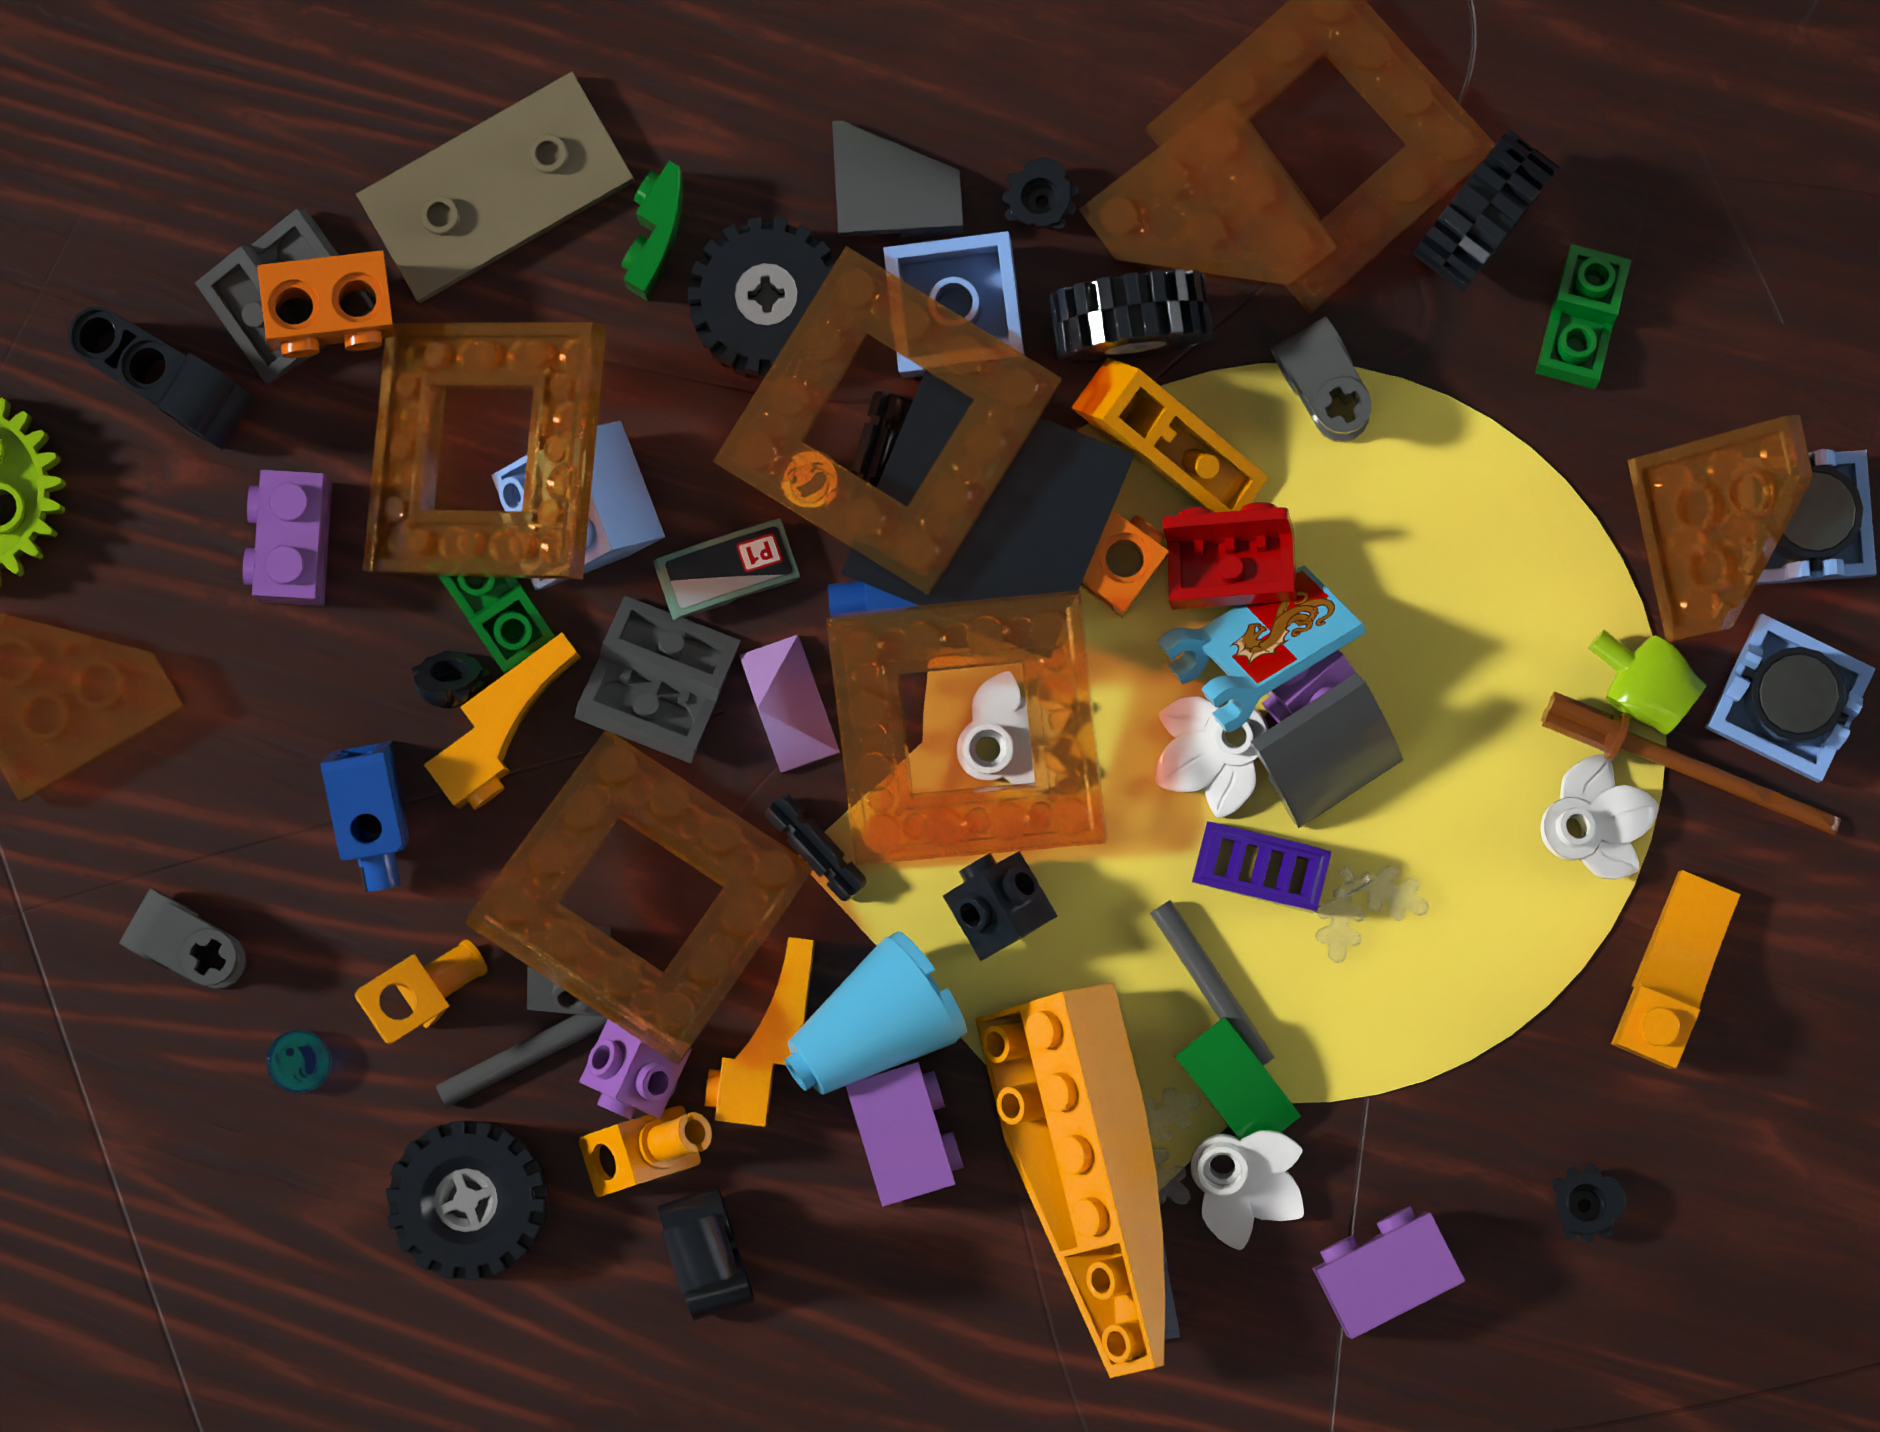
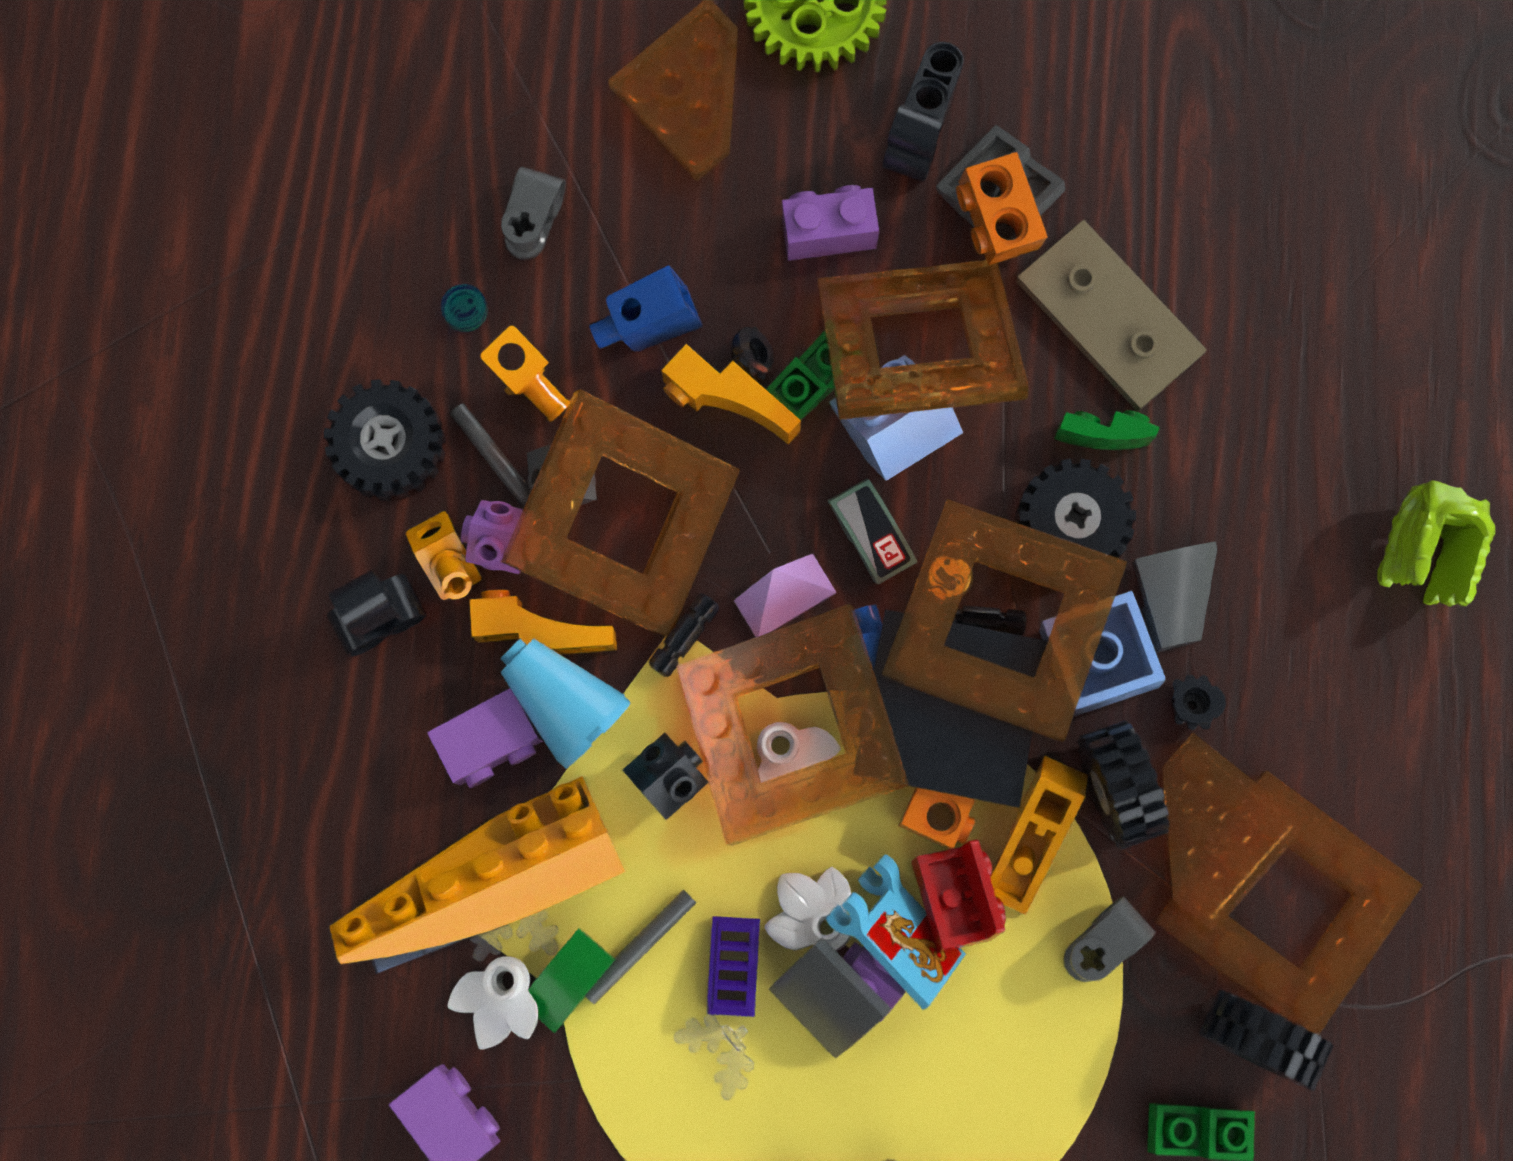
camera: 80 degrees right, 5 degrees down
(657, 679) = (782, 498): dark grey slope -> none

